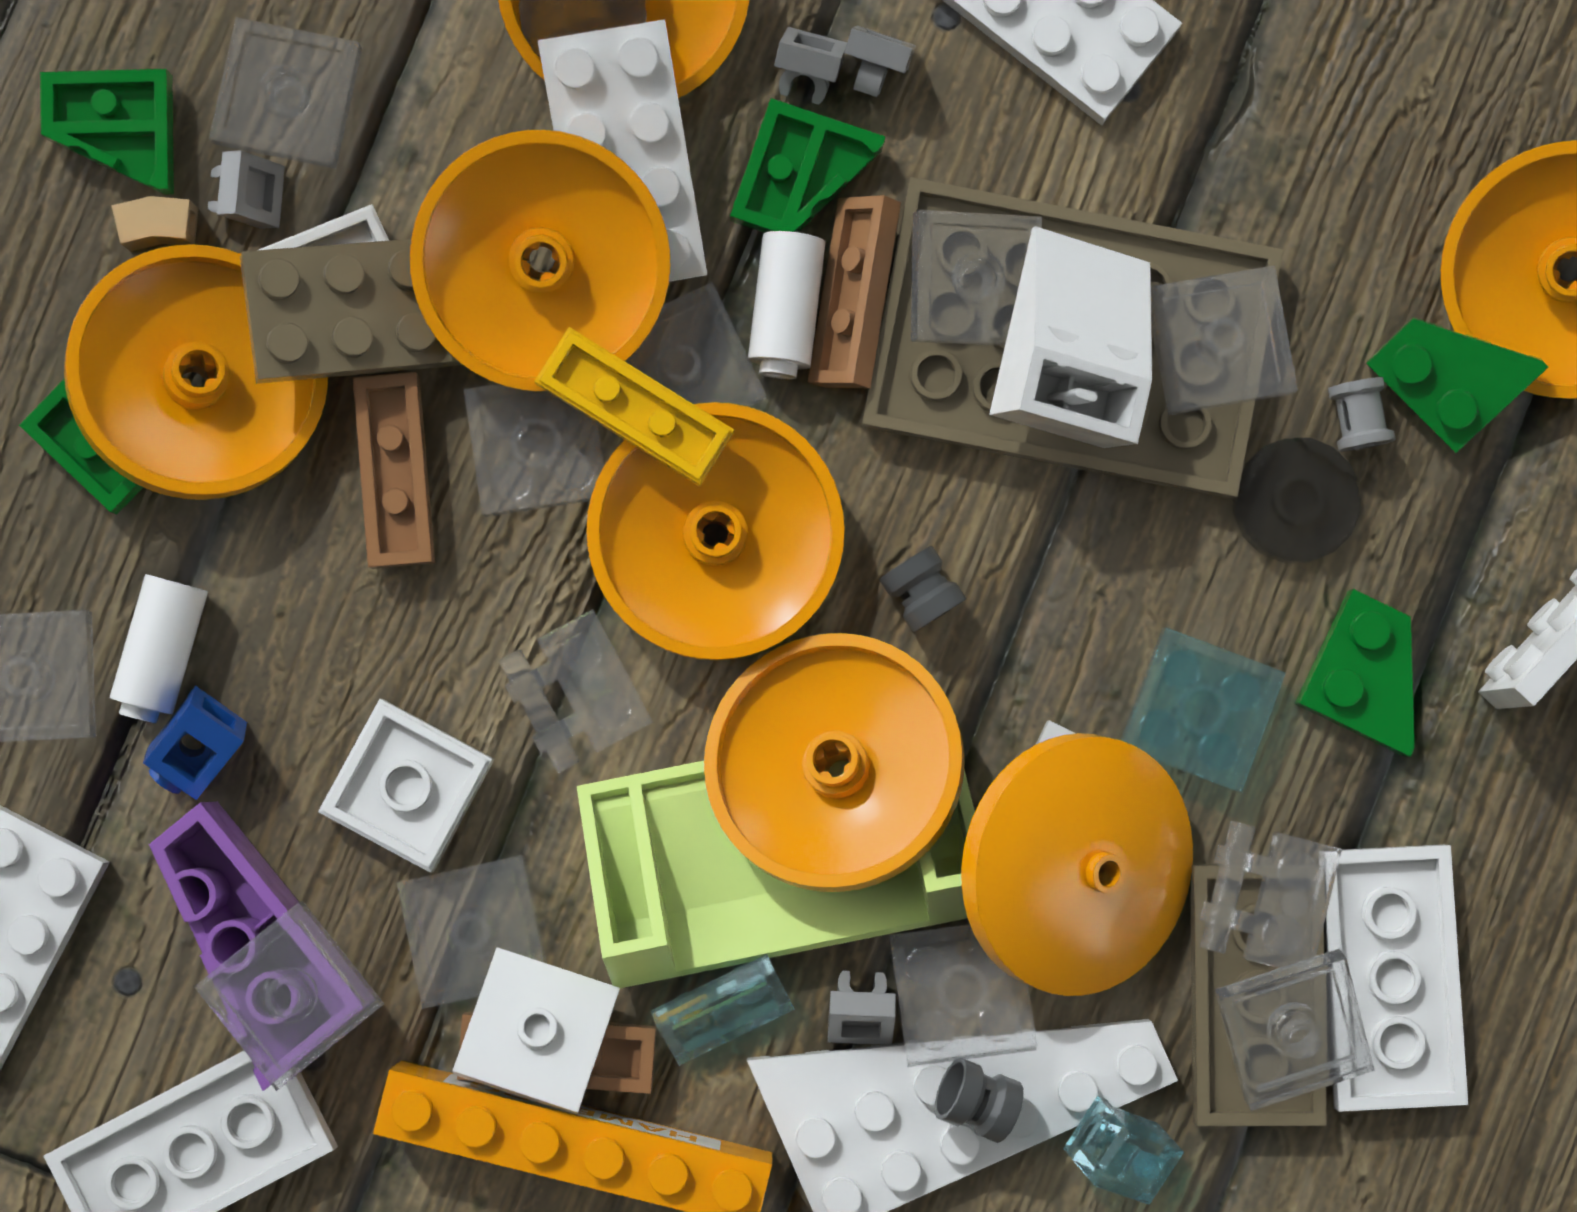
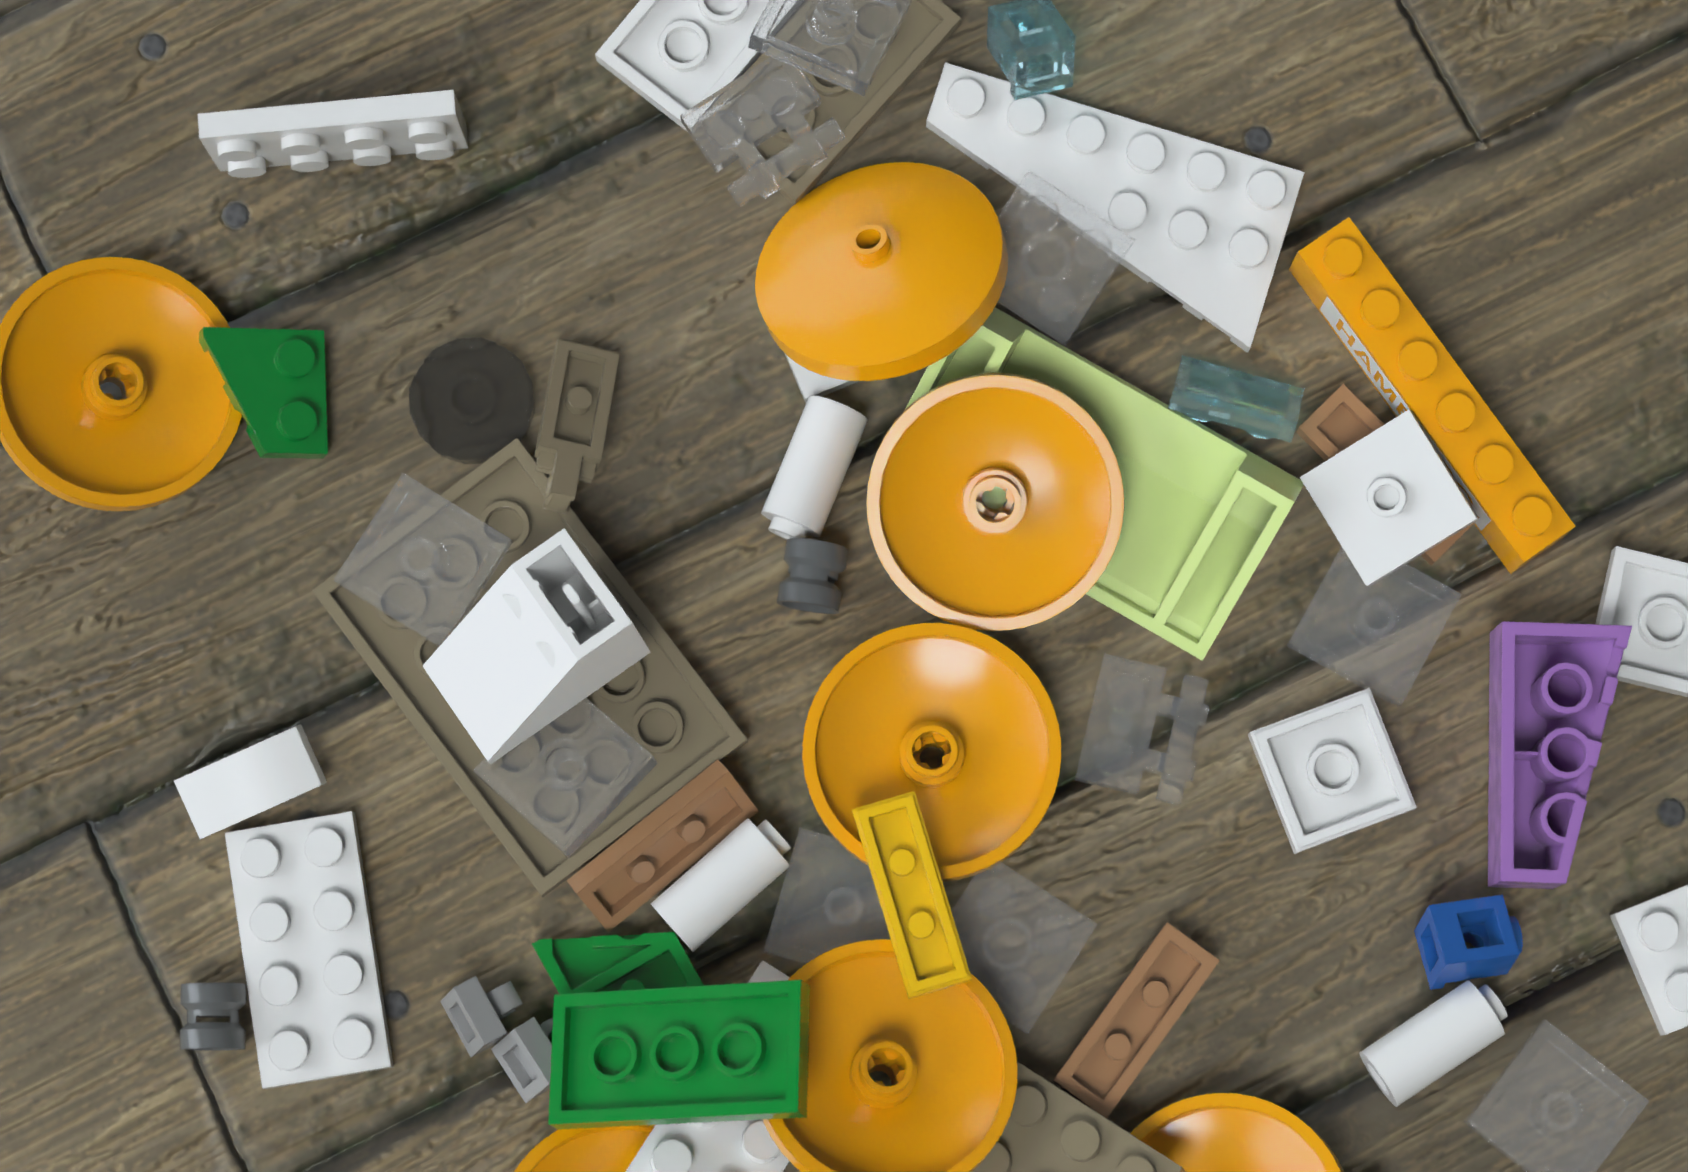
camera: 135 degrees left, 5 degrees down
(289, 995) = (1552, 675): clear plate -> none
(697, 134) = (680, 1055): none -> green plate
(861, 1015) = (1137, 305): light grey tile -> none
(979, 1100) = (1102, 164): dark grey wheel -> none
(994, 670) = (813, 468): none -> white brick
(1197, 74) = (250, 781): none -> white slope
(1203, 709) = (685, 308): clear light blue plate -> none
(1207, 548) = (574, 419): none -> dark tan hinge
(1361, 414) = (368, 418): light grey bush -> none
(1365, 674) = (539, 231): green wing -> none

